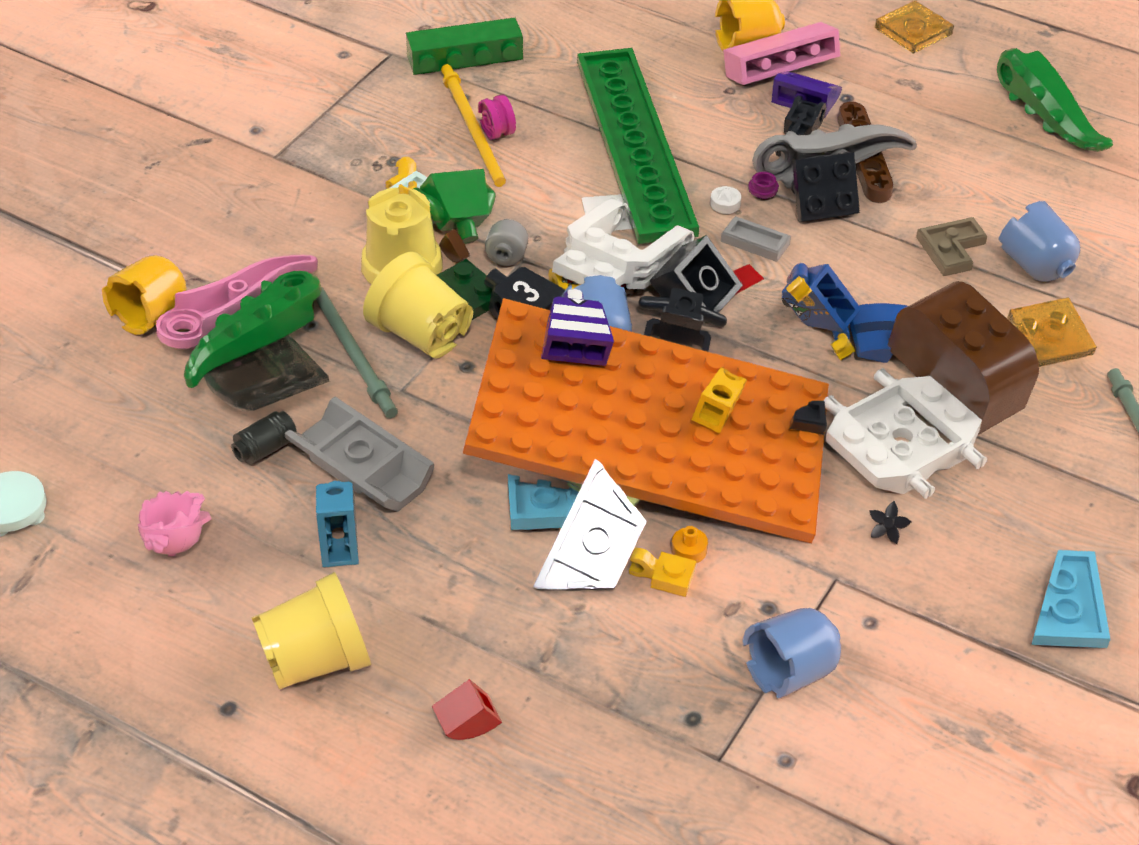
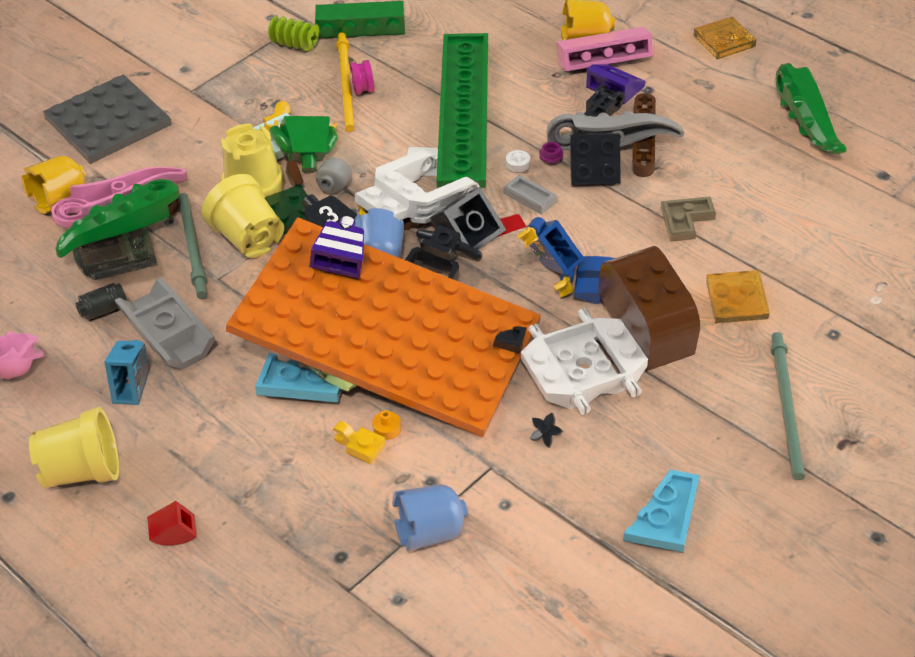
camera: 15 degrees right, 0 degrees up
(178, 203) = (107, 118): none -> dark grey plate
(387, 72) = (293, 33): none -> lime piece
(593, 538) = (309, 408): wing -> none
(718, 400) = (437, 315): yellow leg -> none
(1041, 243) = (751, 223): medium blue cylinder -> none

